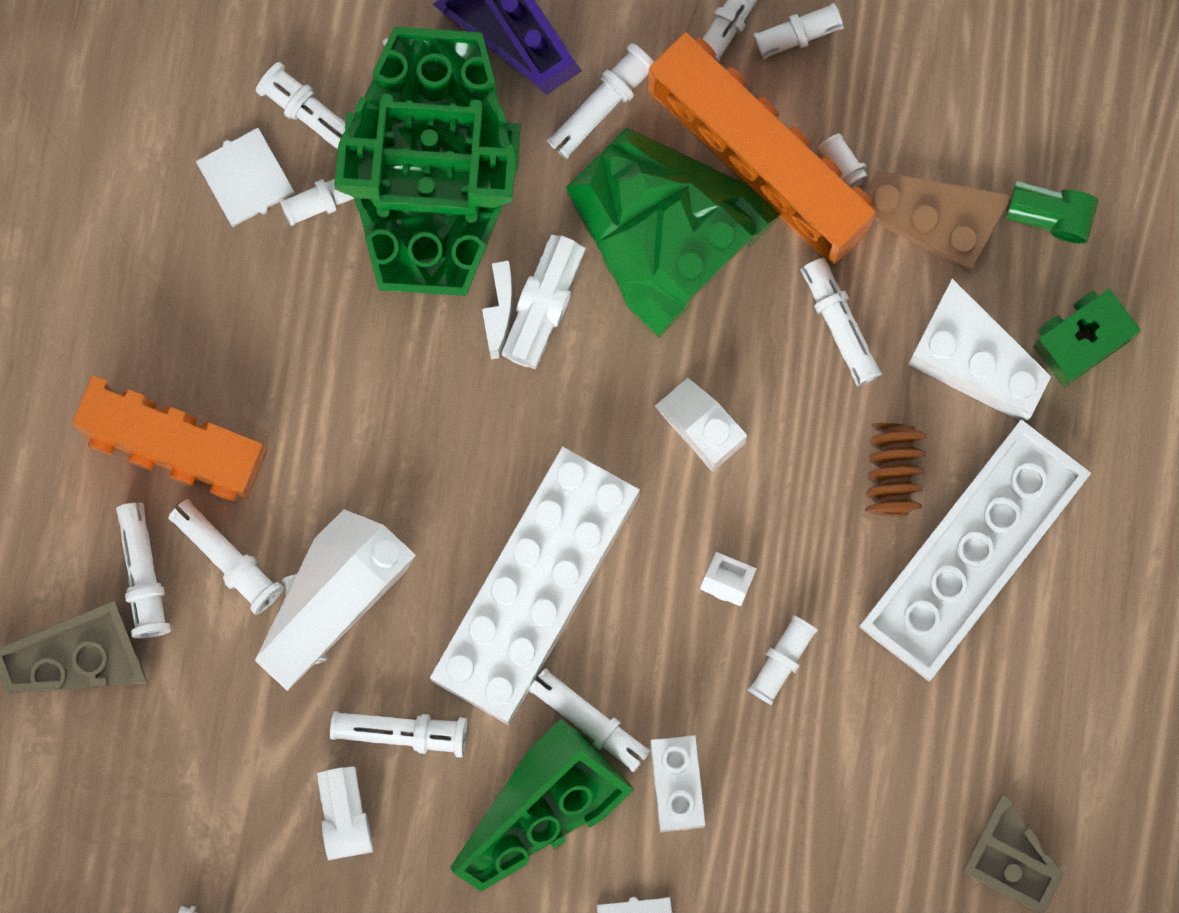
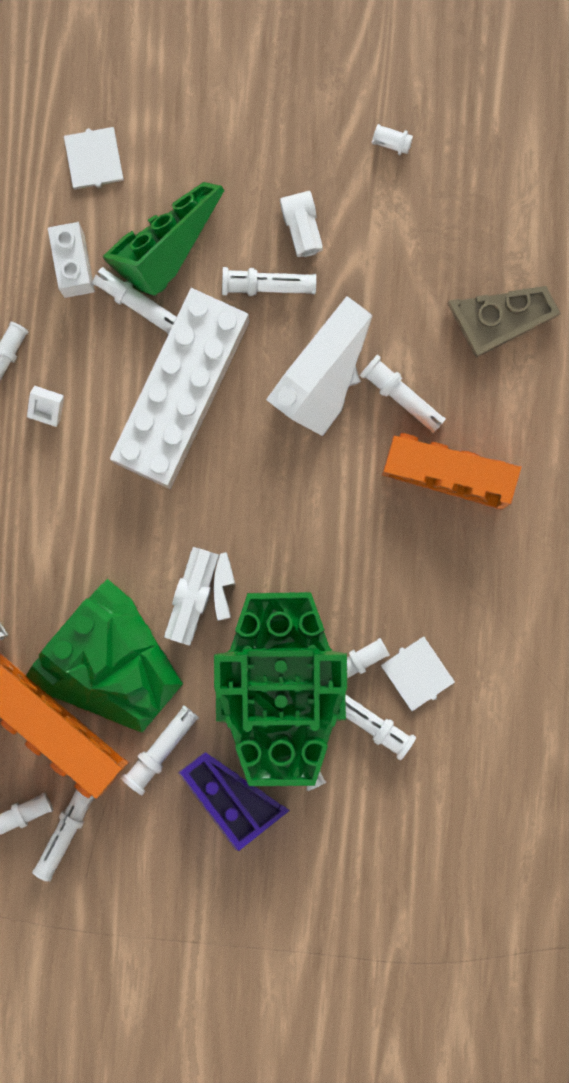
camera: 175 degrees right, 5 degrees up
(144, 590) = (457, 365): white pin -> none
(702, 423) = (71, 516): white slope -> none

